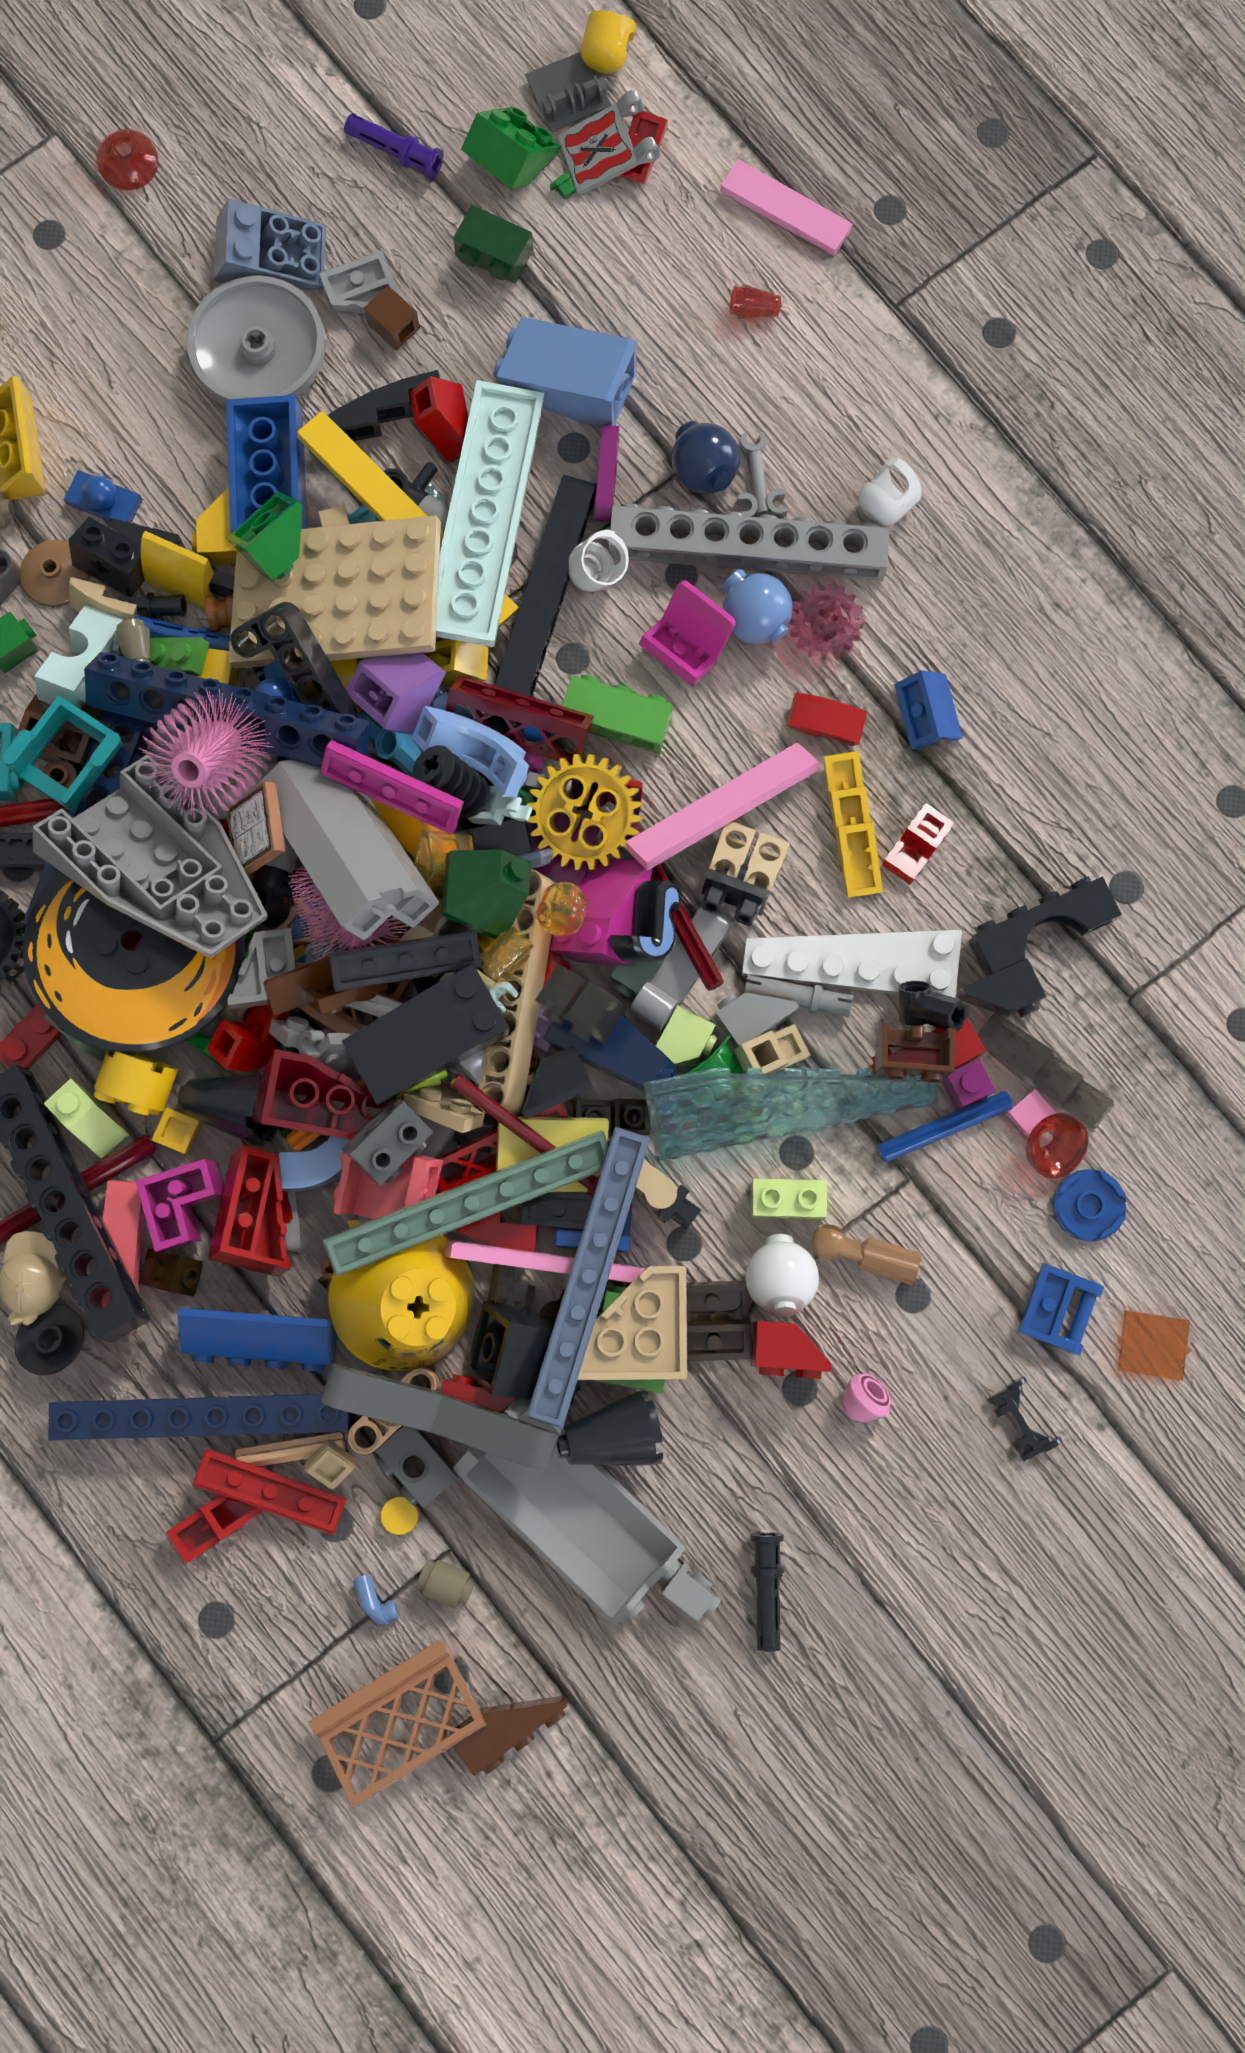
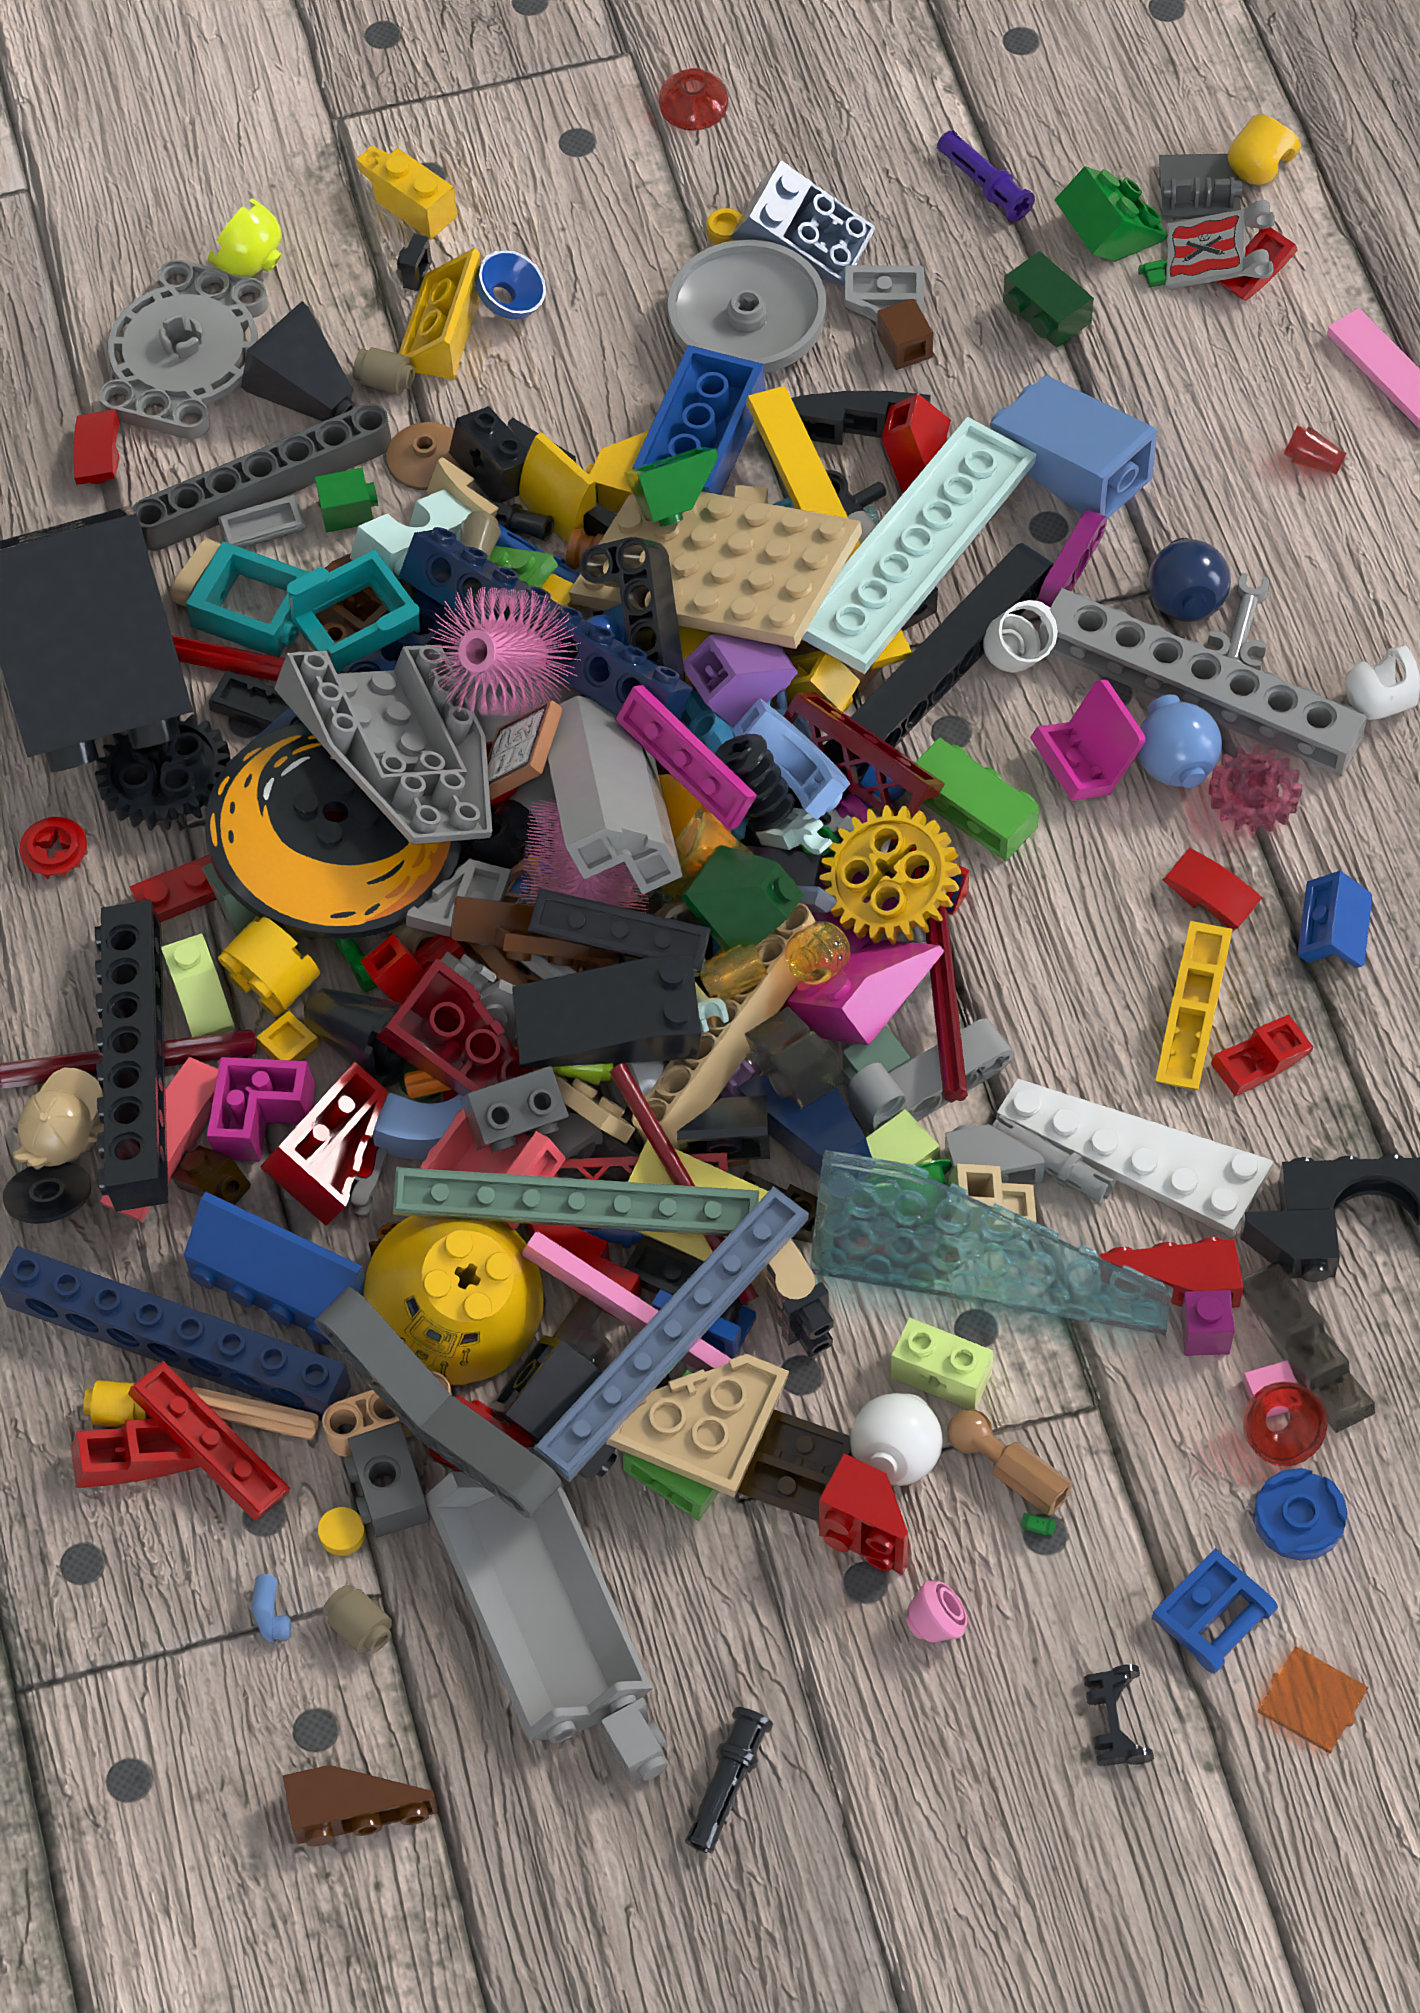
camera: 25 degrees right, 20 degrees down
(58, 382) = (518, 277): none -> blue piece
(102, 498) = (511, 397): blue tile -> none
(178, 1493) = (111, 1405): none -> yellow brick
(202, 271) = (722, 224): none -> yellow tile
(330, 1464) = (290, 1442): tan tile -> none
(375, 1698) = (232, 1708): nougat fence -> none
(614, 1435) = (624, 1525): black cone -> none
(652, 924) = (913, 1011): black animal -> none
(722, 806) = (1049, 926): bright pink tile -> none
(741, 884) = (1043, 1006): hips -> none
(906, 1293) = (1038, 1524): none -> green piece
(915, 1038) = (1161, 1273): reddish brown window -> none
(922, 1006) = (1194, 1217): black piece -> none
(945, 1126) = (1162, 1362): blue axle -> none

